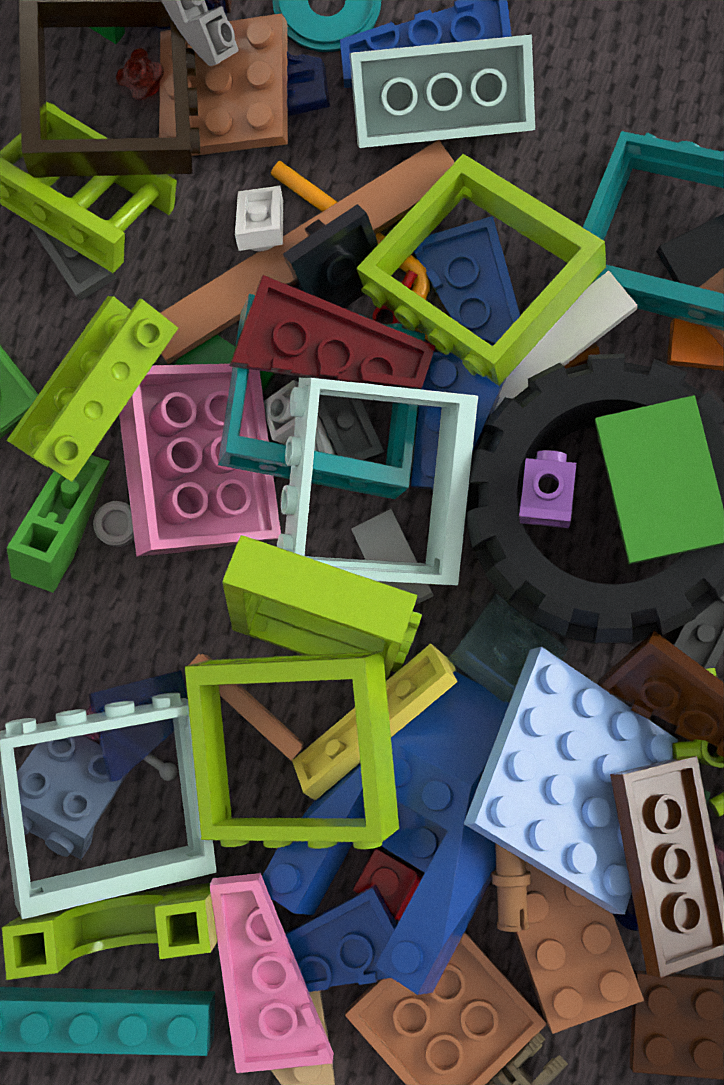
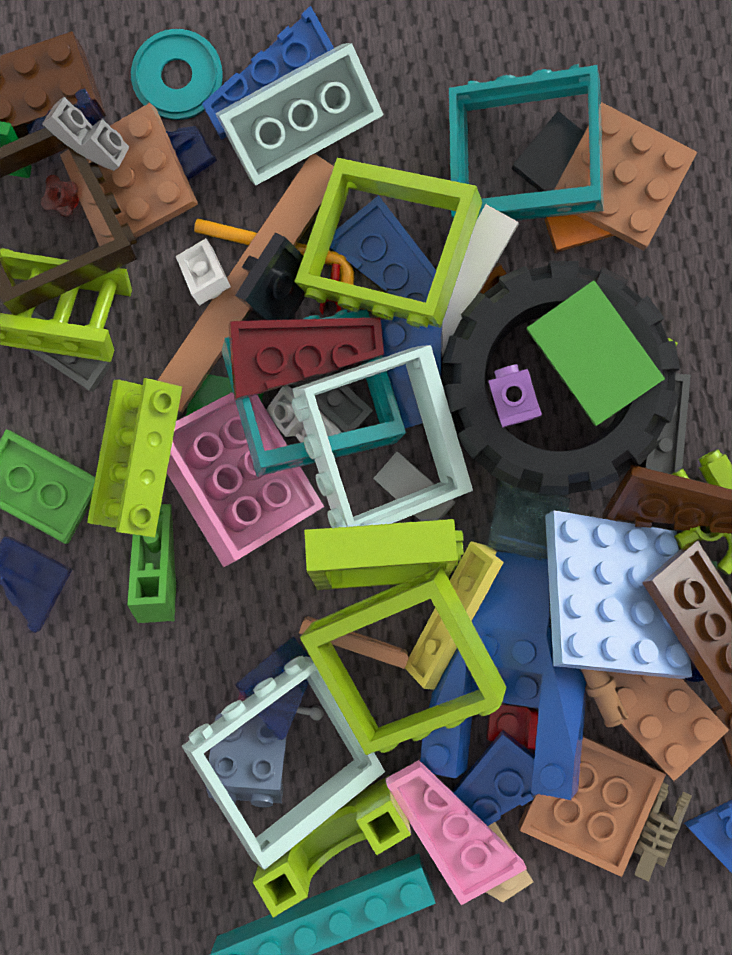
camera: 20 degrees left, 5 degrees up
(114, 524) = (195, 549): light grey tile -> none

